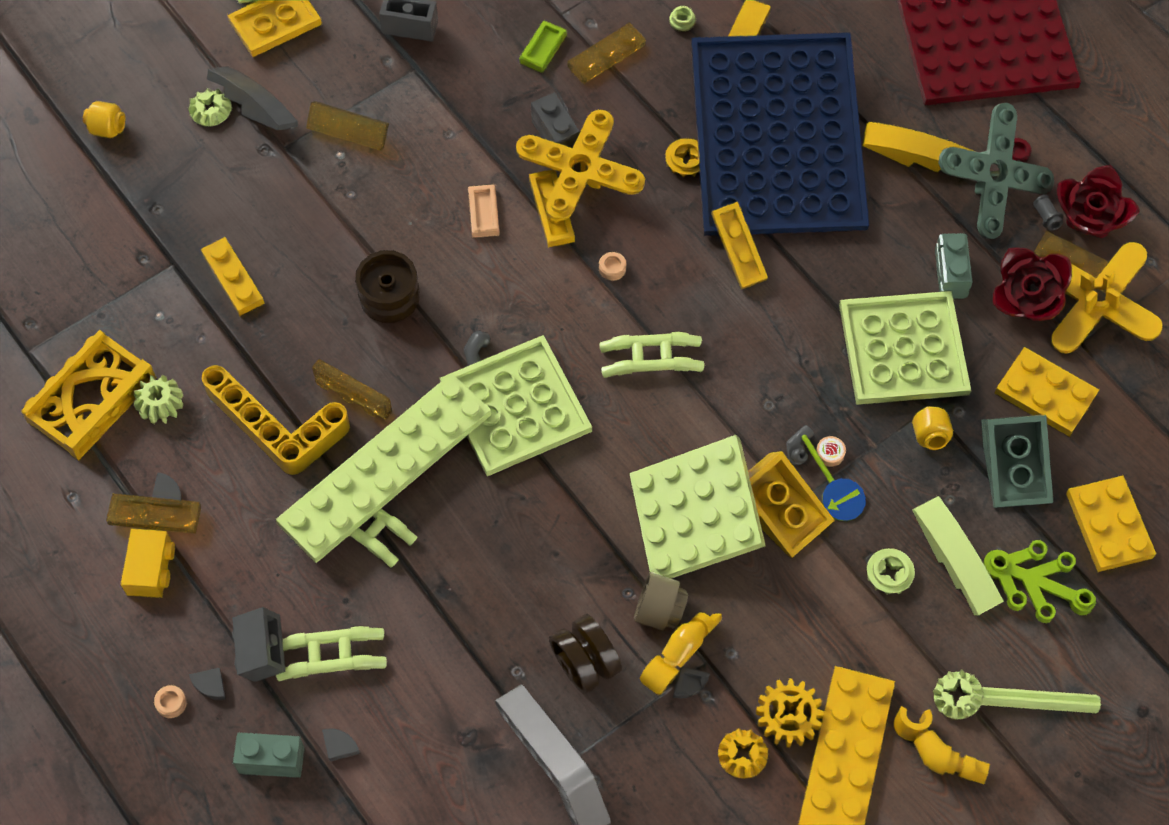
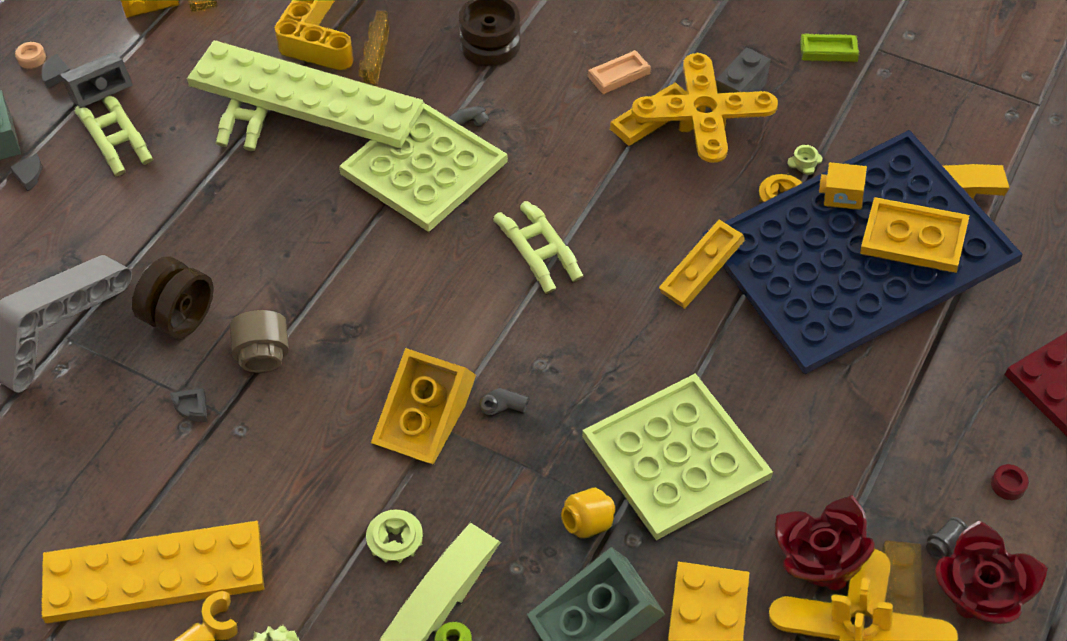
camera: 65 degrees right, 10 degrees down
(606, 53) = (858, 93): clear yellow plate -> none
(612, 266) = (620, 183): light nougat tile -> none
(659, 118) = (805, 159): none -> yellowish green plate
(677, 652) = (213, 372): yellow piece -> none
(682, 18) = (943, 132): yellowish green plate -> none
(697, 509) = (372, 330): yellowish green plate -> none
(728, 109) = (843, 185): none -> yellow brick
(742, 767) = (132, 487): yellow gear -> none
(797, 722) = (185, 496): yellow gear -> none
(799, 89) = (915, 234): none -> yellow plate
(831, 451) = (512, 433): tile -> none
(841, 497) = (464, 462): blue piece -> none
(906, 145) = (937, 382): yellow slope -> none
(953, 264) = (807, 462): sand green brick -> none
(995, 184) = (962, 475): sand green piece -> none

